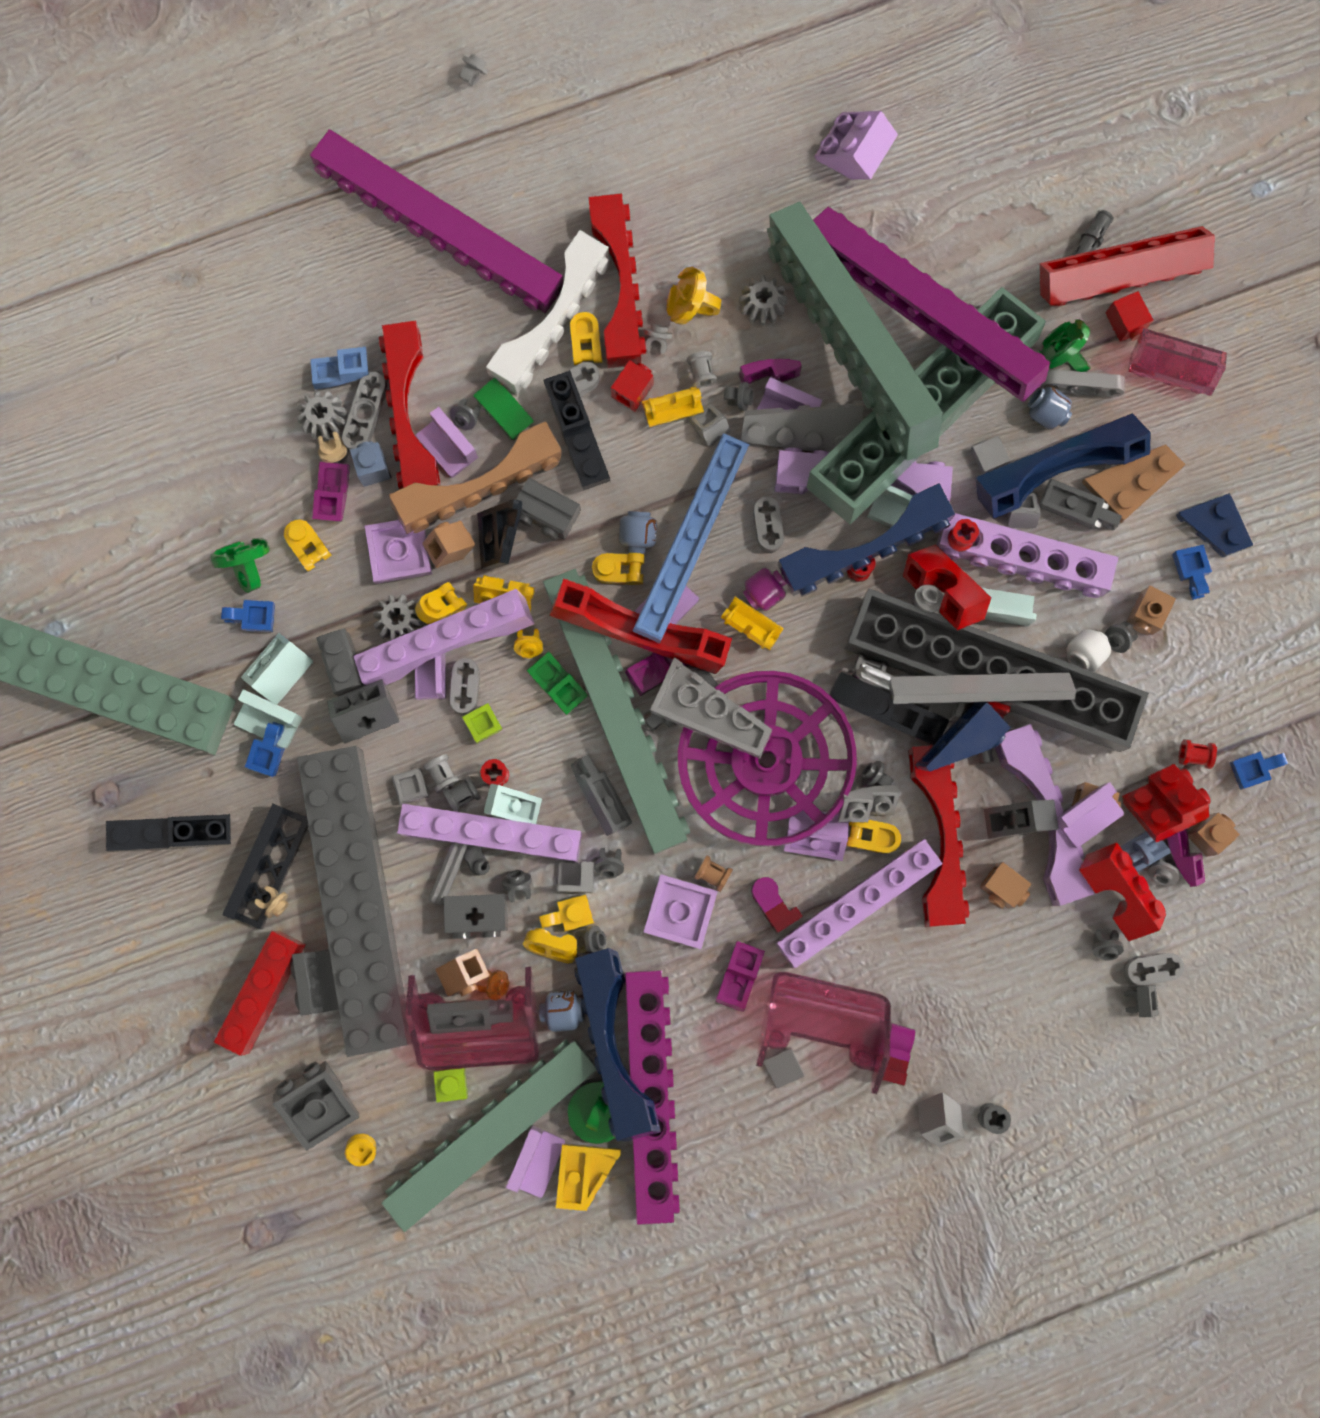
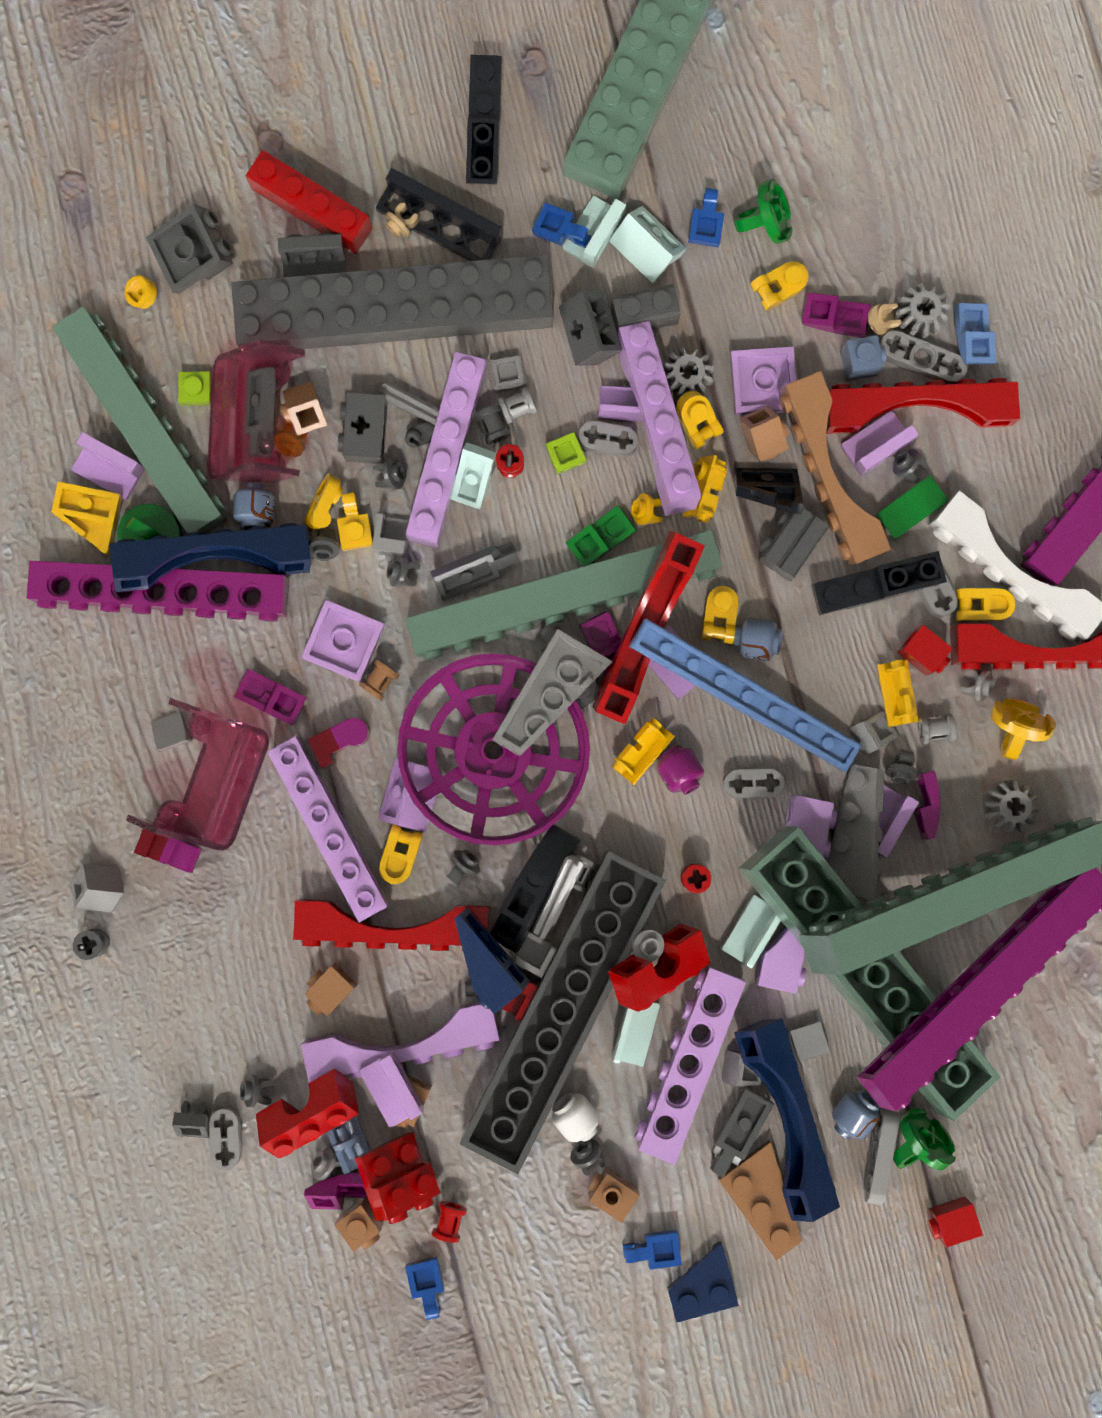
camera: 95 degrees right, 5 degrees up
(811, 566) = (743, 951): dark blue arch -> none
(869, 801) = (436, 853): light grey slope -> none
(966, 527) = (706, 986): red bush -> none
(982, 688) = (540, 989): light grey tile -> none
(1021, 819) = (396, 1014): dark grey brick -> none
(1093, 236) = (1054, 1194): dark grey pin -> none
(1126, 266) = (1015, 1228): brick -> none
(1177, 362) = (895, 1268): clear pink brick -> none

